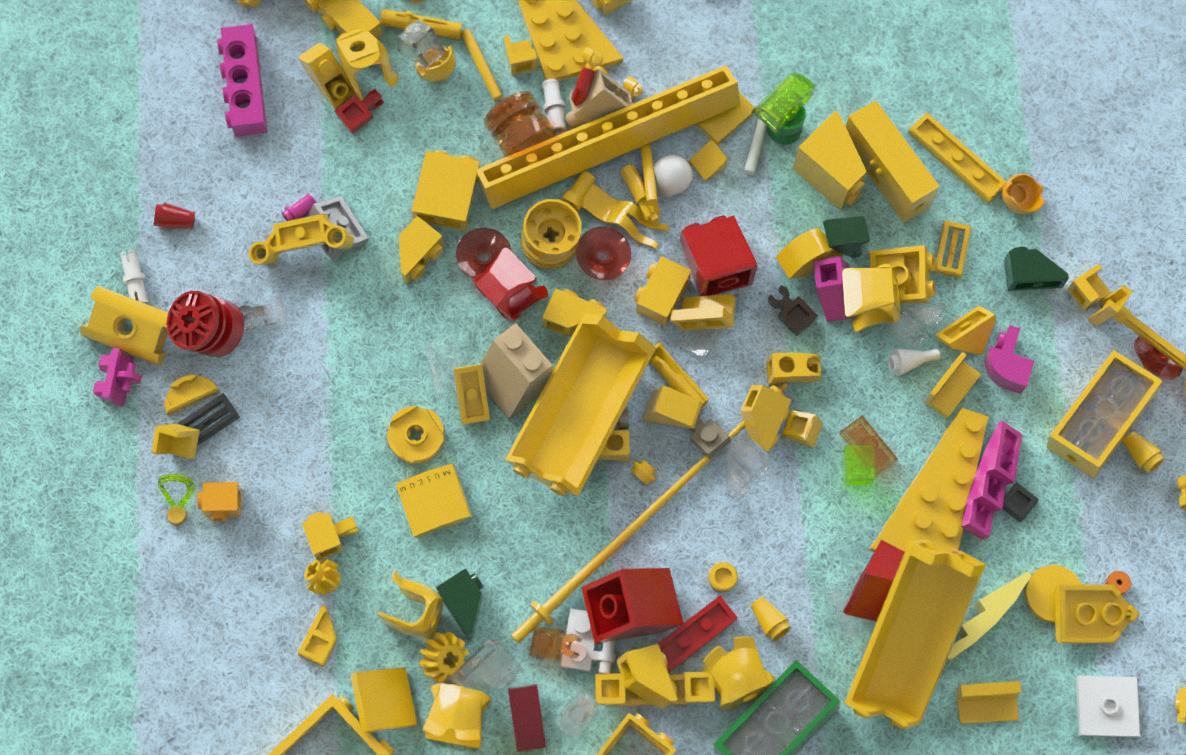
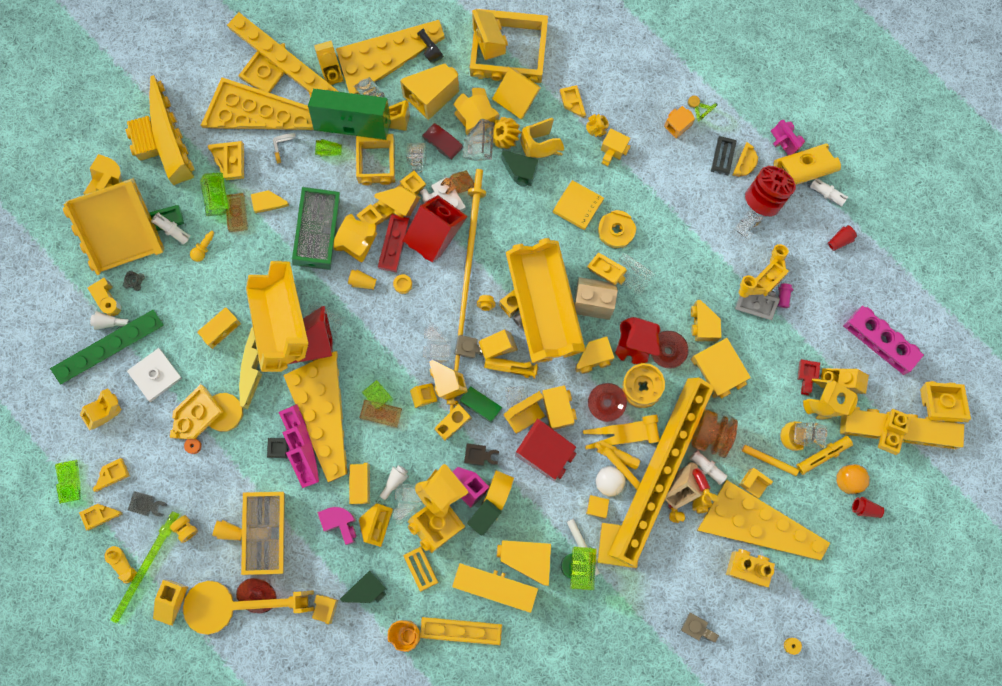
camera: 140 degrees right, 5 degrees up
(175, 440) = (729, 131): yellow panel -> none
(745, 363) = (480, 404): none -> green slope

